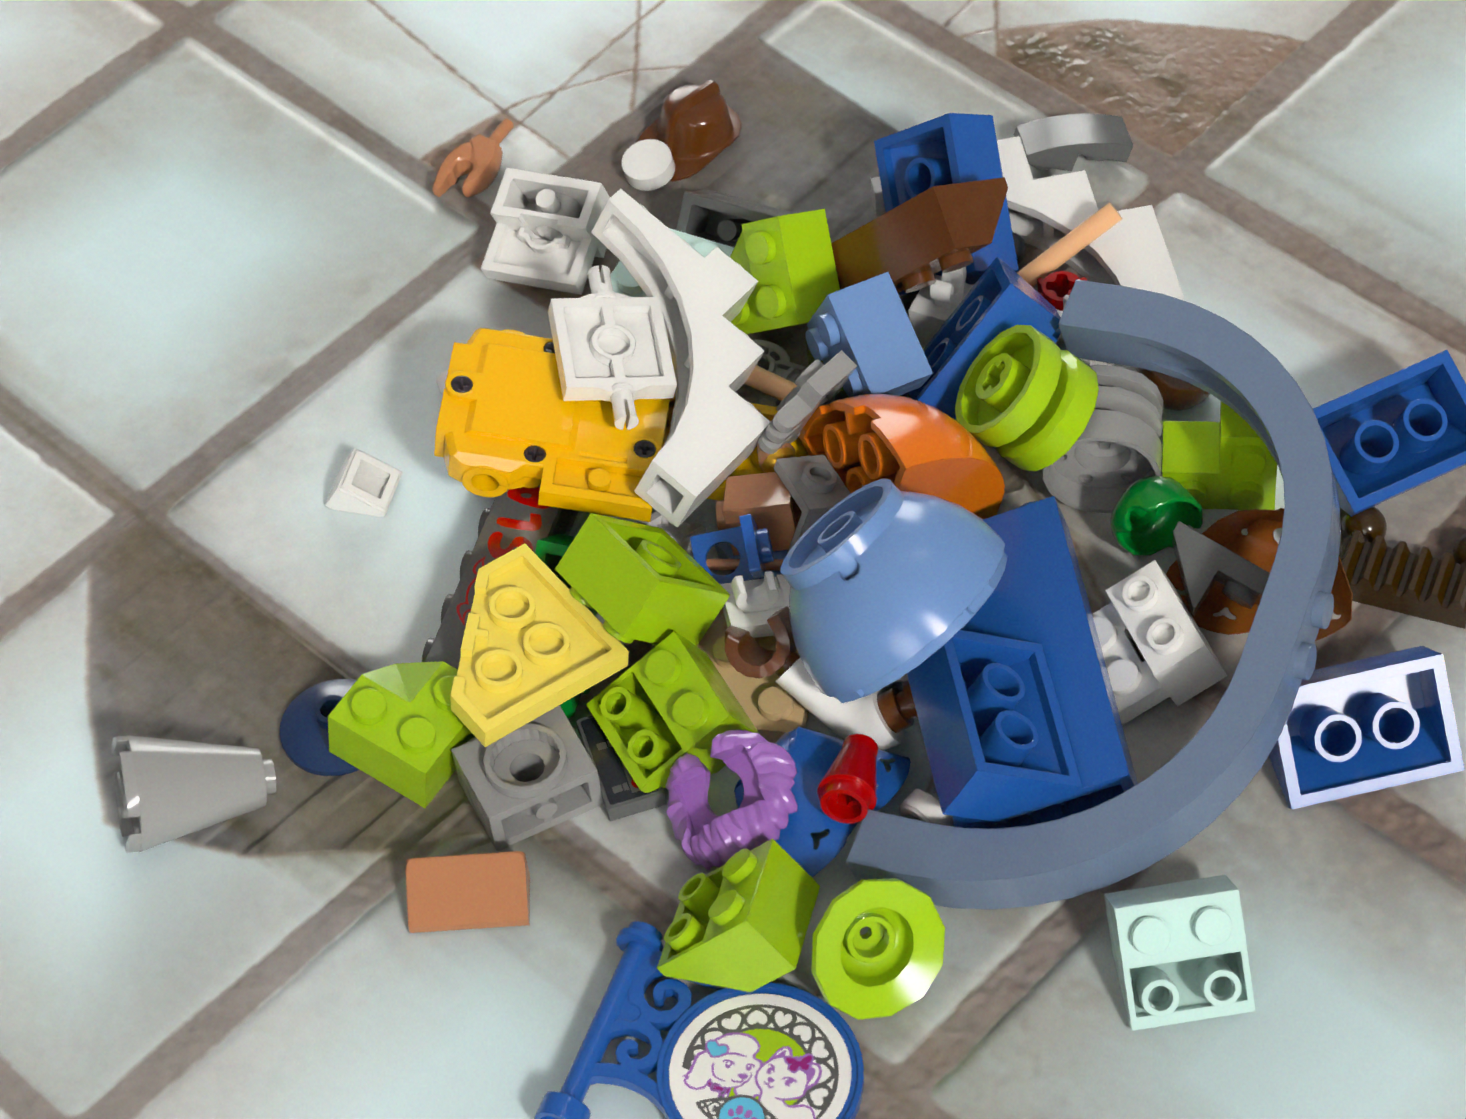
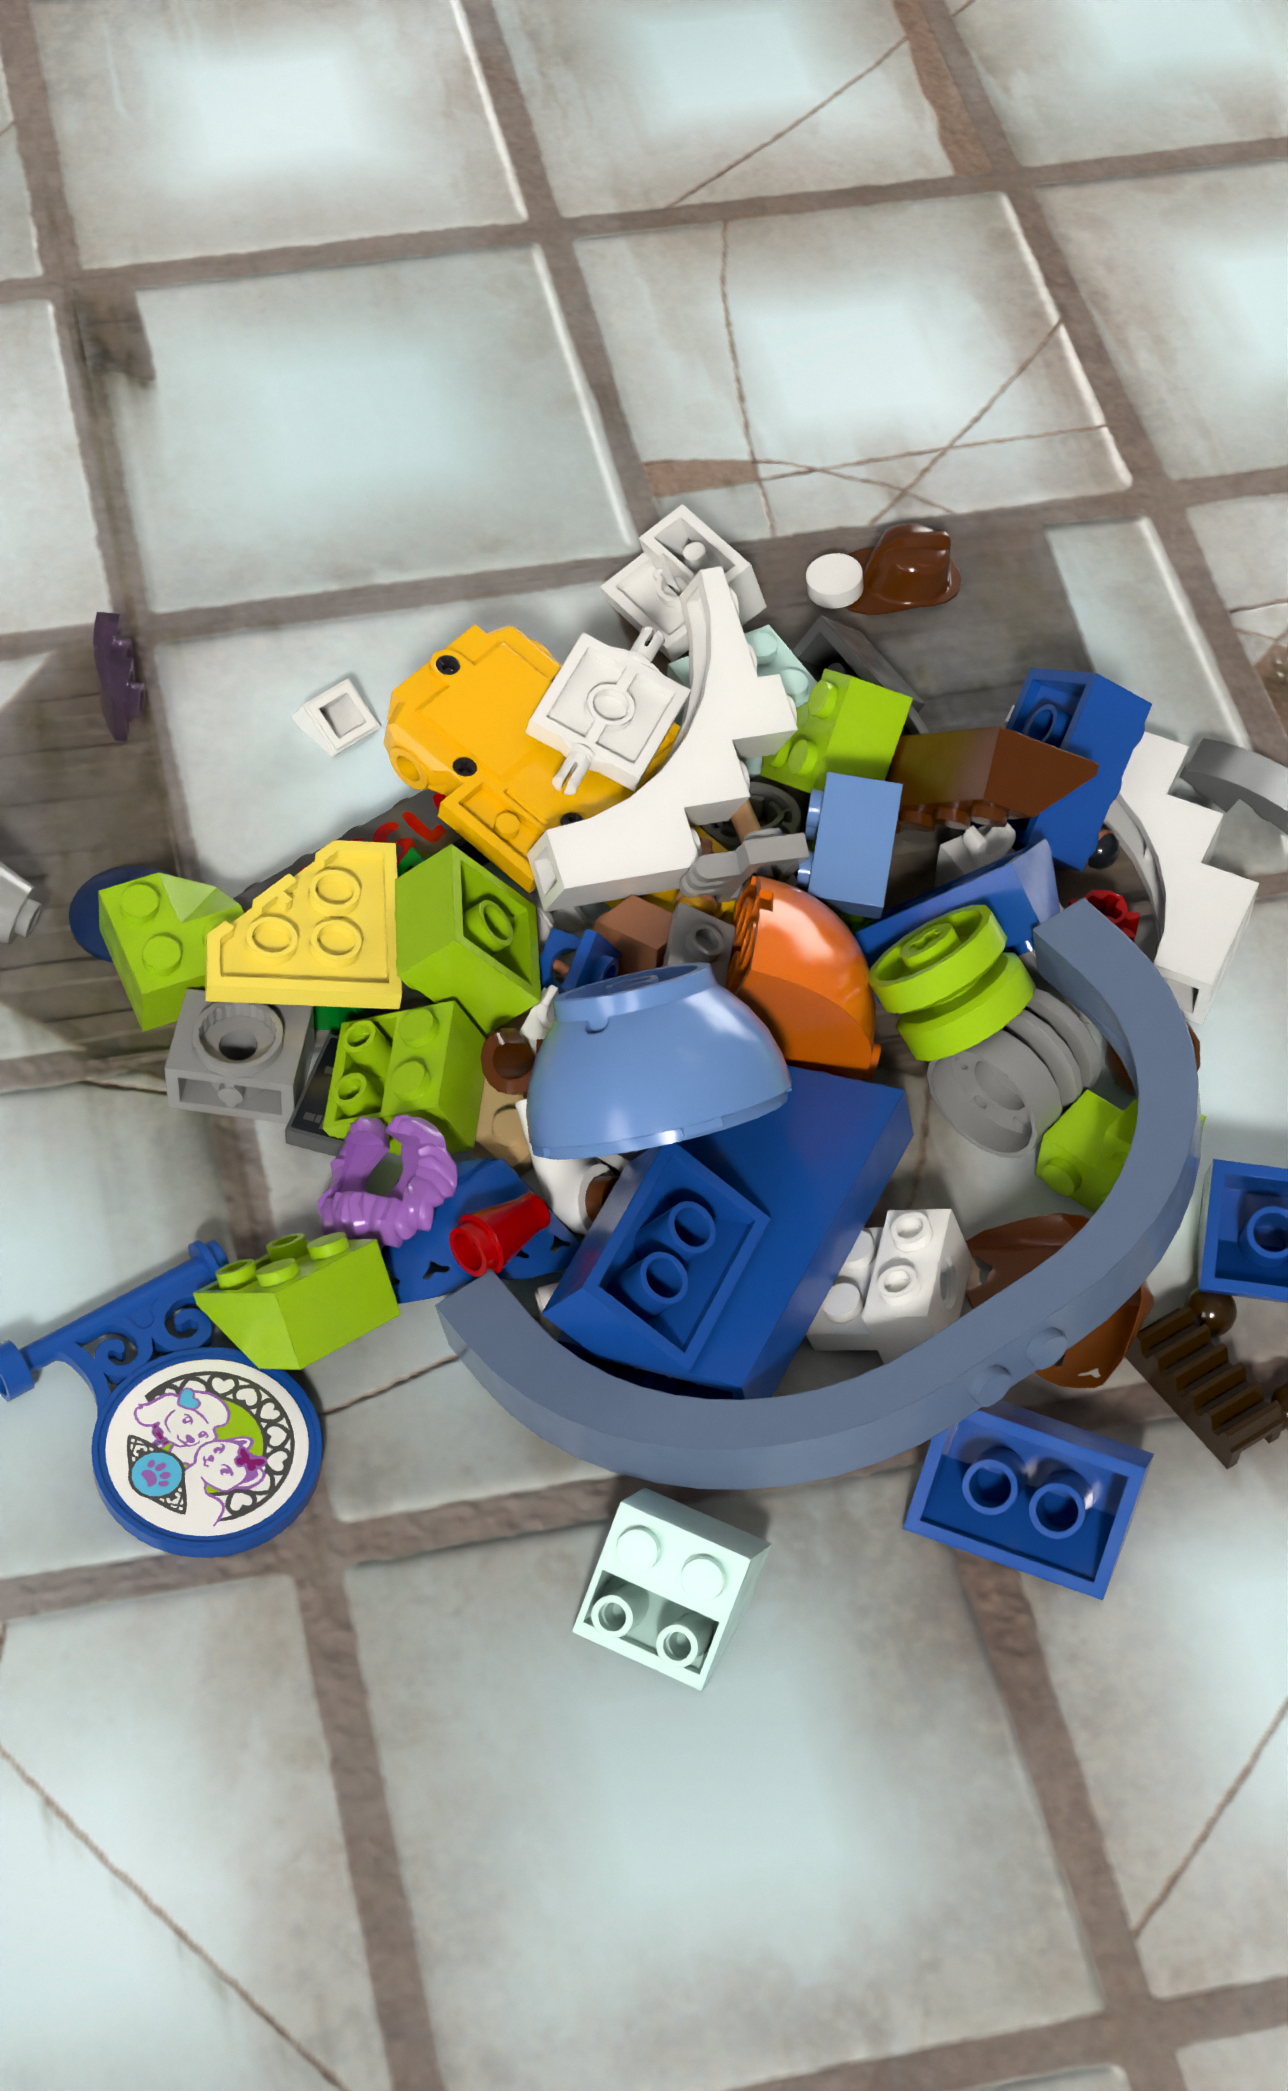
camera: 25 degrees right, 0 degrees up
(166, 555) = (118, 692): none -> clear purple slope
(468, 891) = (106, 1125): nougat slope -> none
(477, 158) = (680, 486): nougat hand -> none
(890, 962) = (376, 1417): lime hat -> none
(1070, 244) = (1134, 875): light nougat bar -> none
(1150, 512) = (1004, 1172): green hair -> none
(1206, 561) = (999, 1246): dark grey slope -> none

